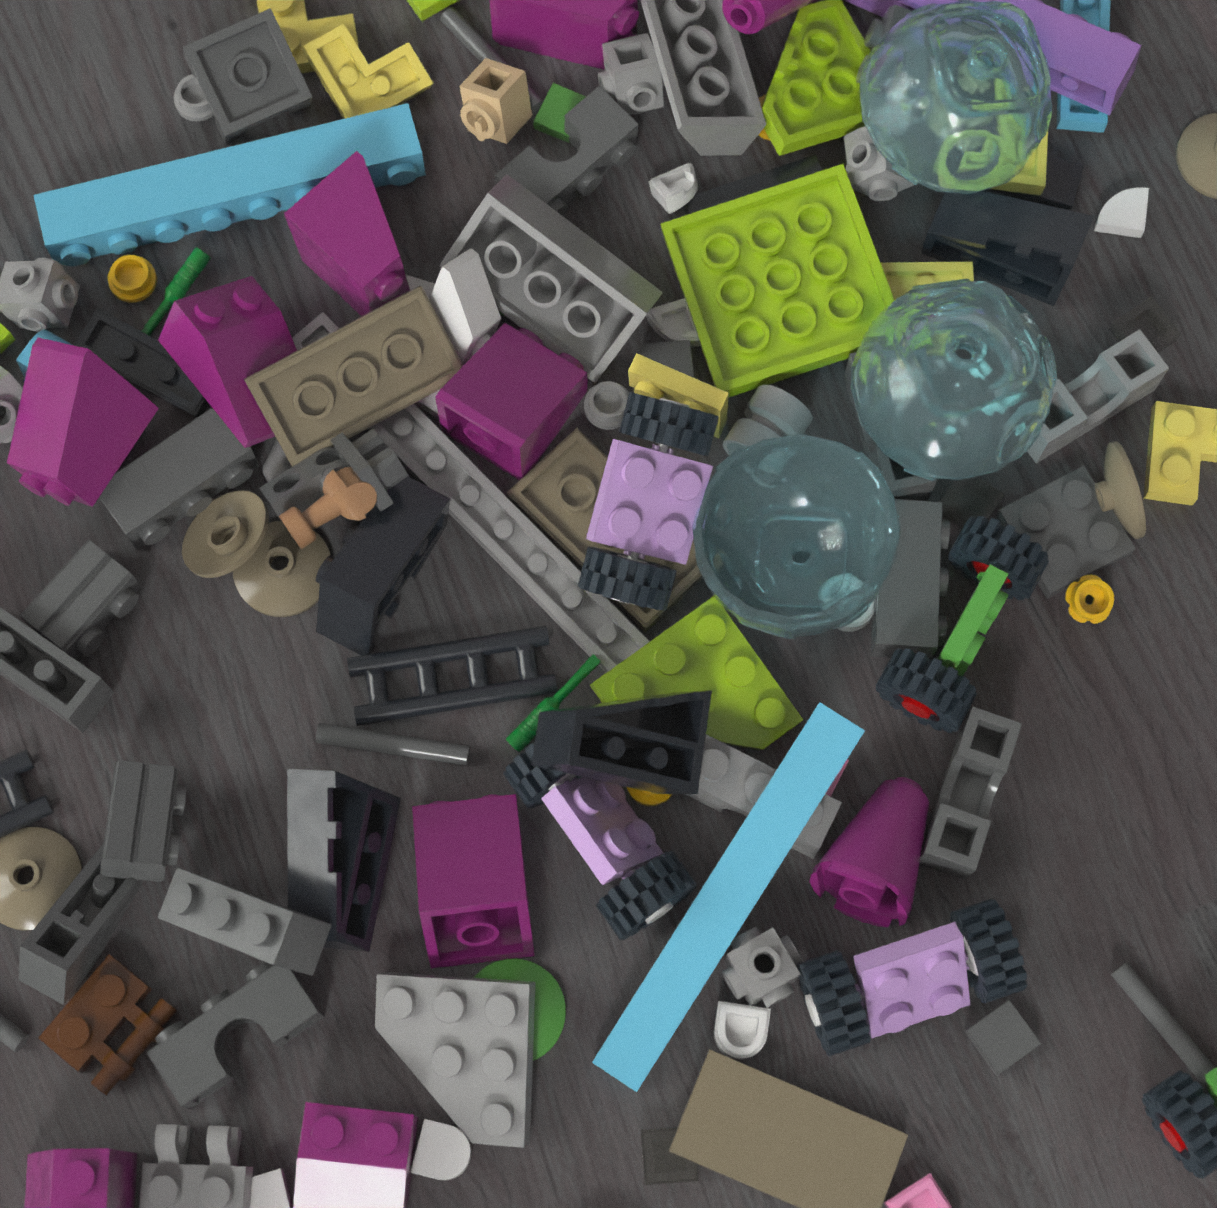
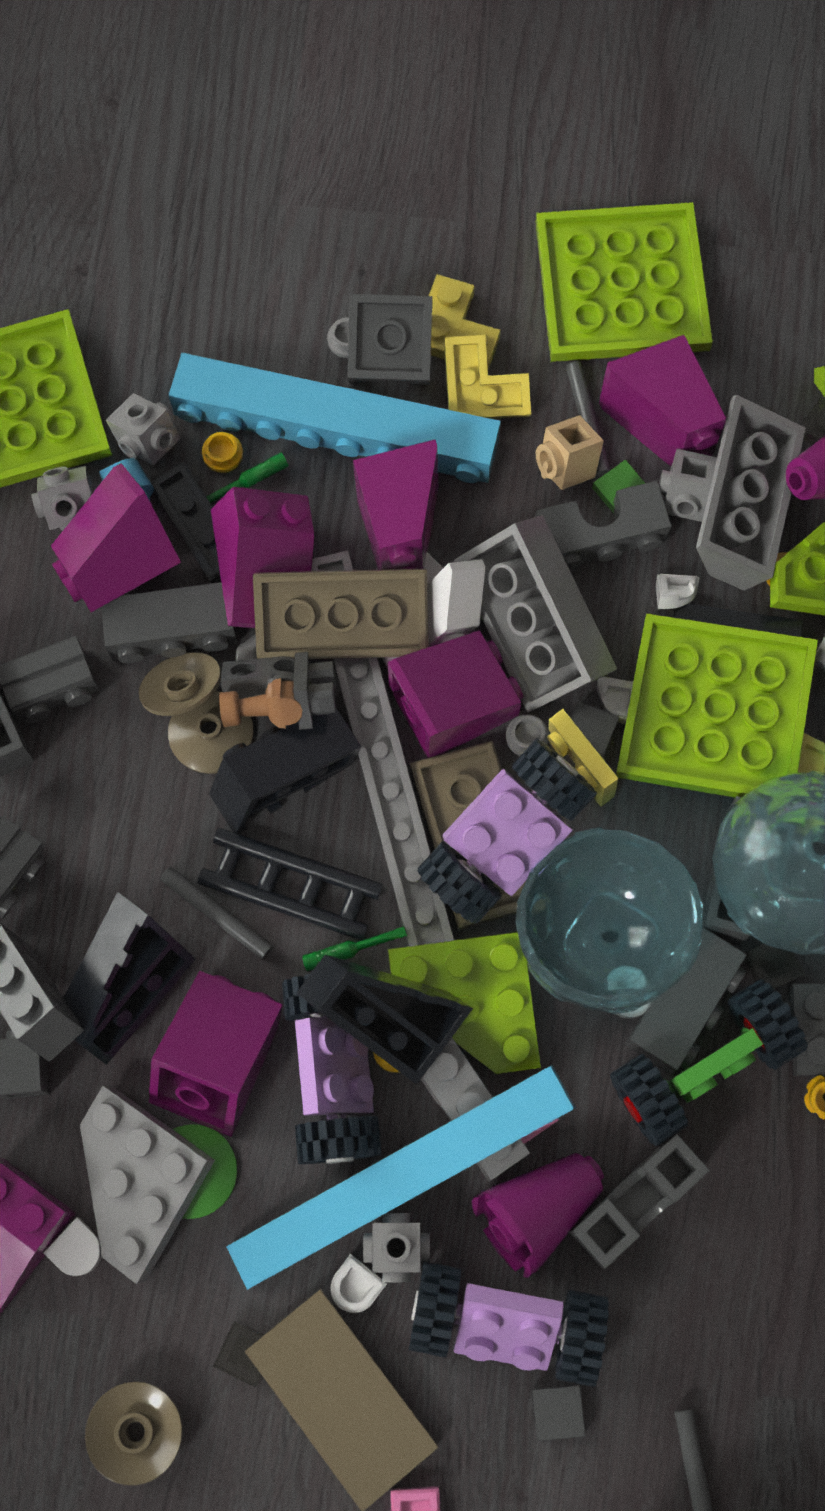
camera: 30 degrees right, 0 degrees up
(769, 415) = (647, 815): light grey wheel -> none

